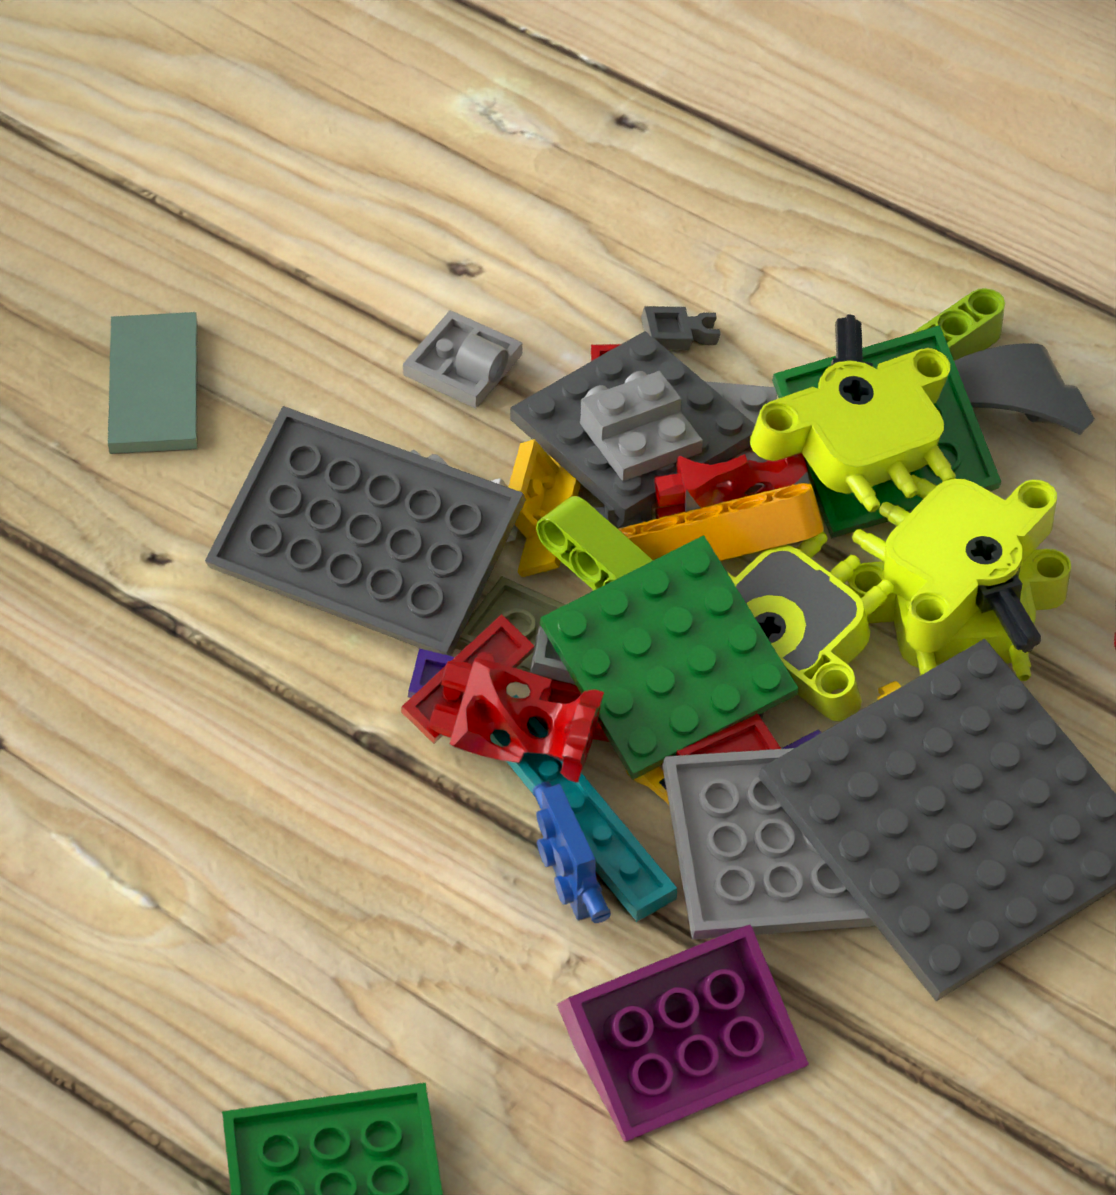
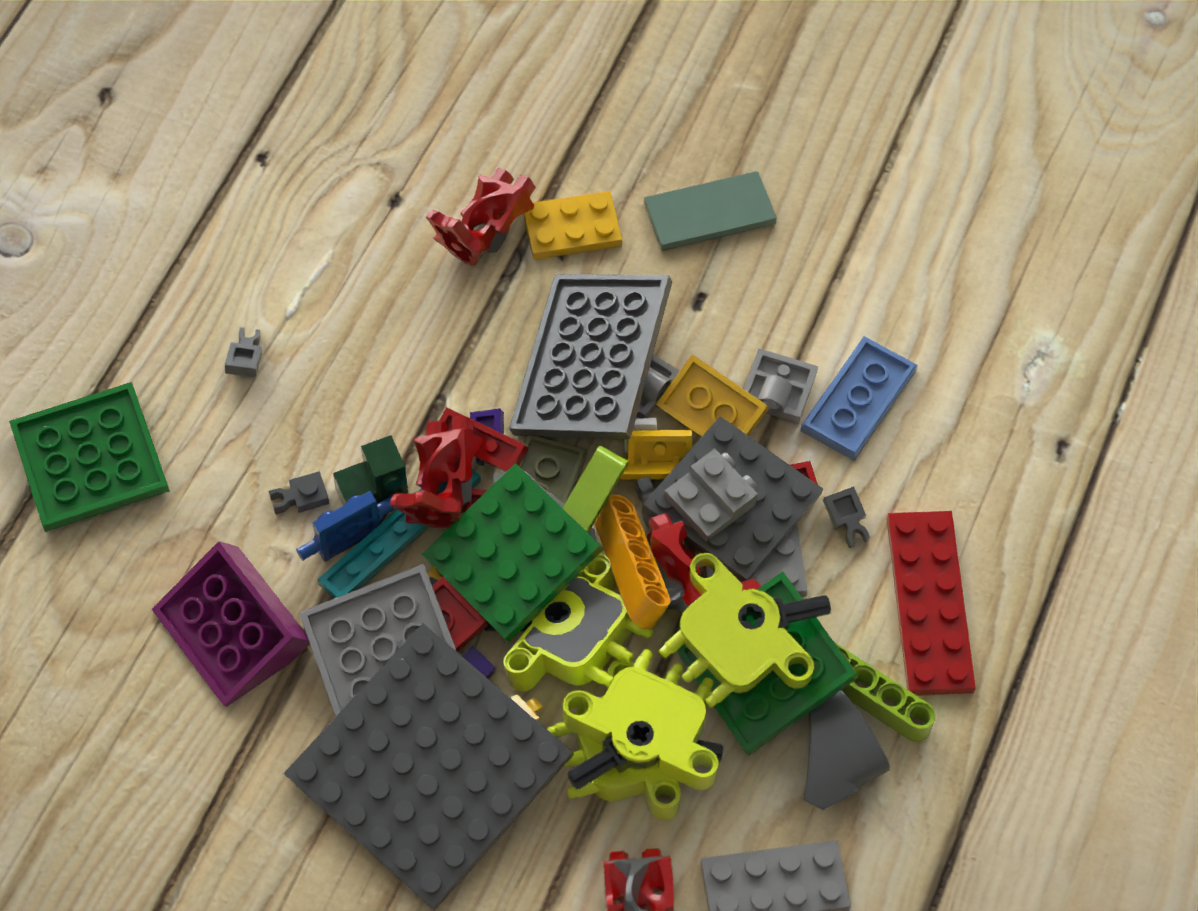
camera: 75 degrees right, 10 degrees up
(115, 648) = (493, 204): none -> red hips
(120, 536) = (572, 225): none -> yellow plate
(217, 962) = (244, 356): none -> dark grey plate
(473, 422) = (704, 394): none -> yellow plate
(478, 920) = (304, 492): none -> dark grey plate
(493, 812) = (380, 473): none -> dark green brick
(501, 288) = (858, 398): none -> medium blue tile
(814, 279) = (930, 603): none -> red plate

